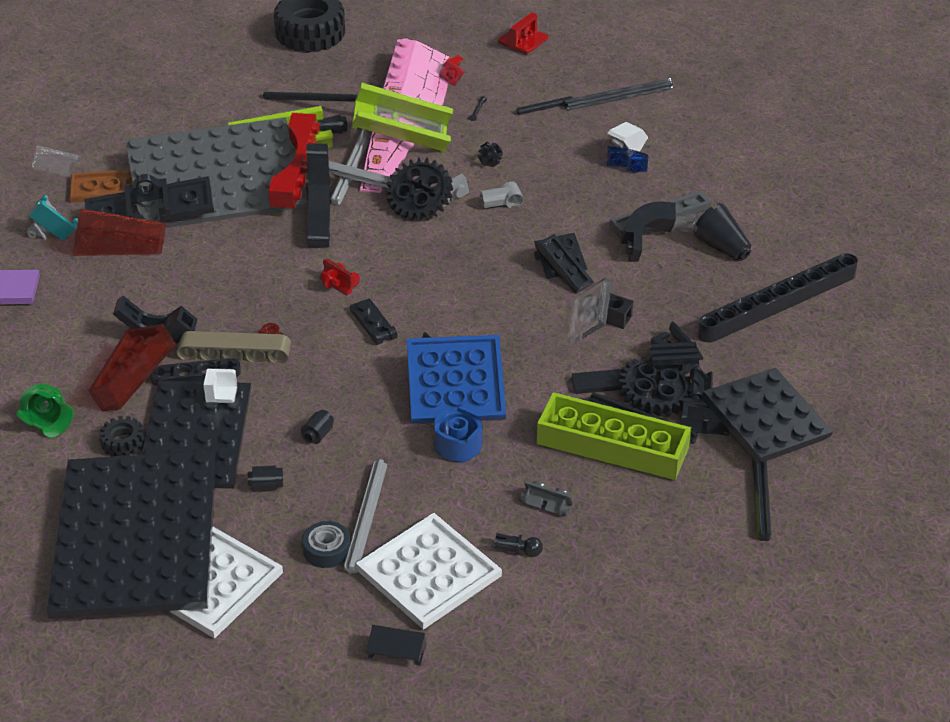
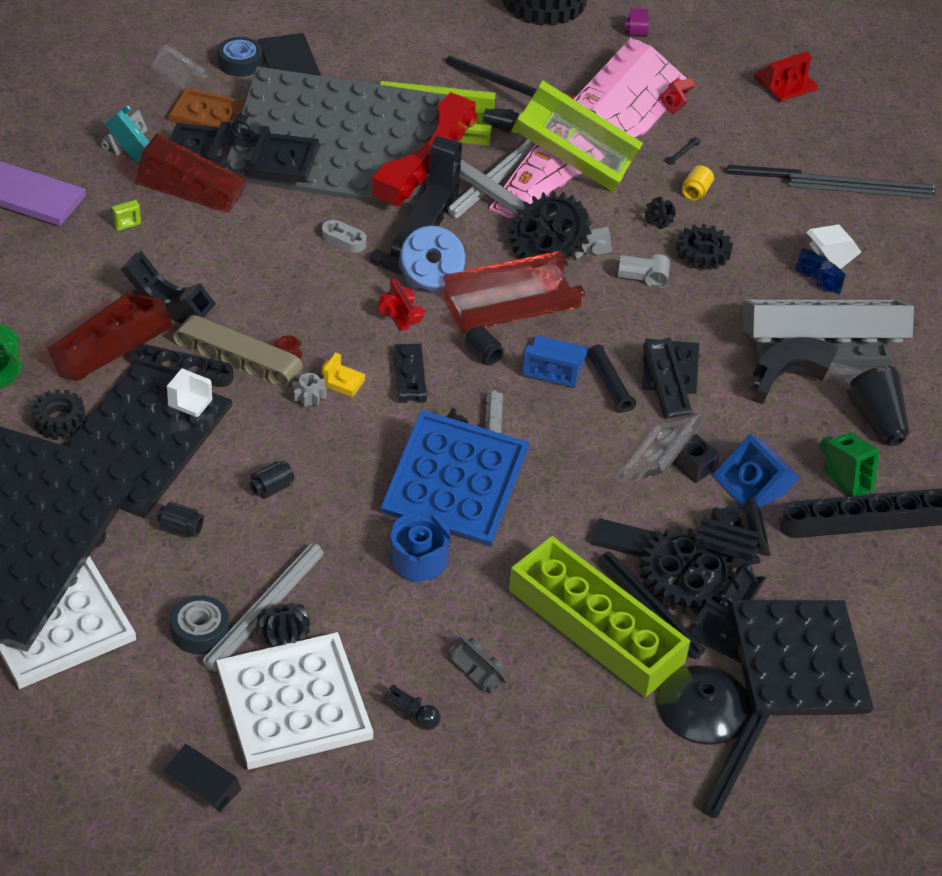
camera: 20 degrees right, 5 degrees up
(84, 278) = (126, 215): none -> lime tile
(100, 139) = (239, 56): none -> black wheel
(136, 125) = (289, 54): none -> black tile
(263, 242) = (344, 236): none -> light grey beam
(306, 356) = (309, 389): none -> light grey gear
(314, 250) = (387, 261): none -> black axle
(324, 341) = (340, 377): none -> yellow bracket
(344, 248) = (416, 267): none -> medium blue plate
(391, 520) = (283, 624): none -> black gear
(392, 28) = (637, 22): none -> magenta plate
(413, 242) = (510, 291): none -> clear red piece
(417, 284) = (484, 345): none -> black brick
(450, 325) = (494, 411): none -> light grey axle
(476, 279) = (554, 361): none -> blue bracket
(503, 126) = (697, 182): none -> yellow brick
(523, 278) = (610, 377): none -> black pin
(535, 168) = (704, 246): none -> black gear
(654, 187) = (828, 319): none -> light grey brick
(663, 305) = (756, 472): none -> blue slope
(717, 470) = (703, 716): none -> black dish
(725, 277) = (851, 463): none -> green torso

